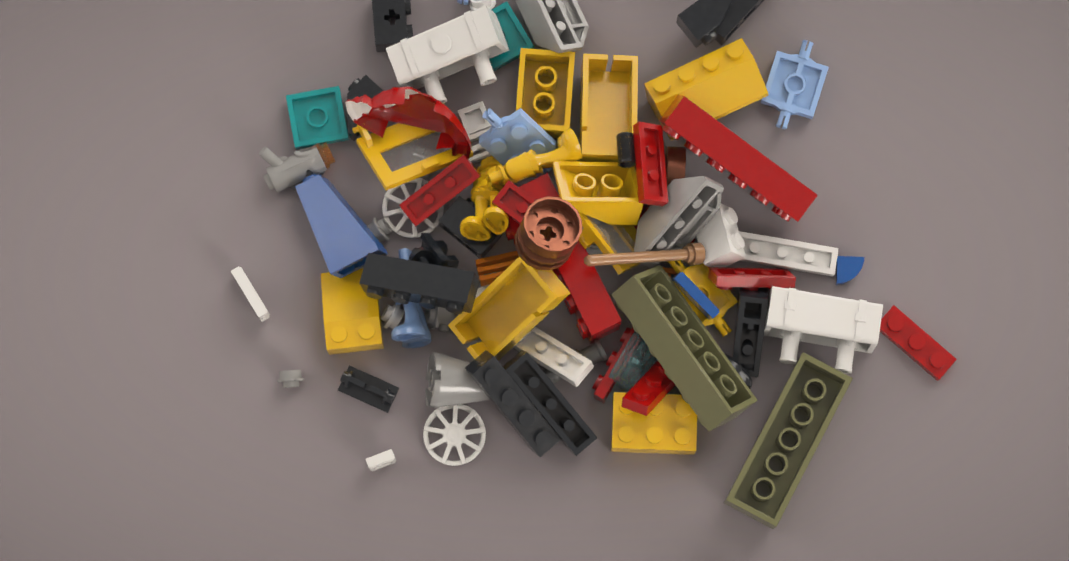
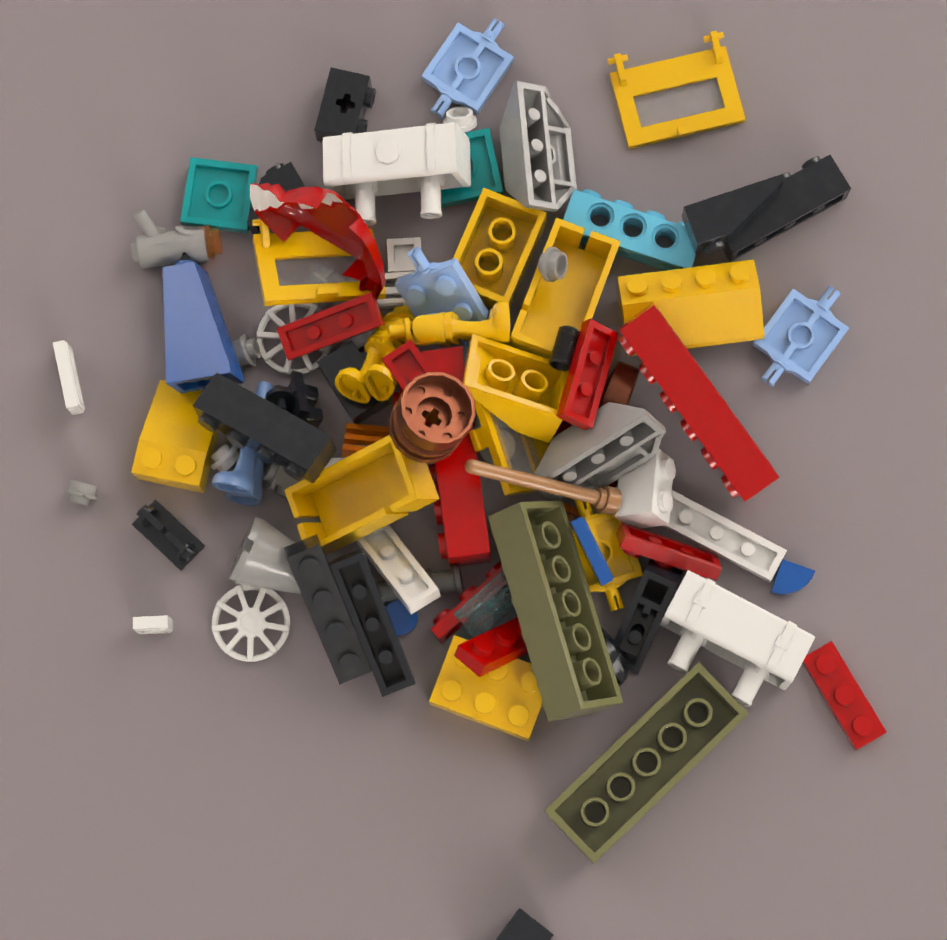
camera: 25 degrees right, 0 degrees up
(569, 391) = (401, 618): none -> blue tile
(594, 89) = (553, 264): none -> light grey plate
(654, 36) = (643, 248): none -> medium azure brick

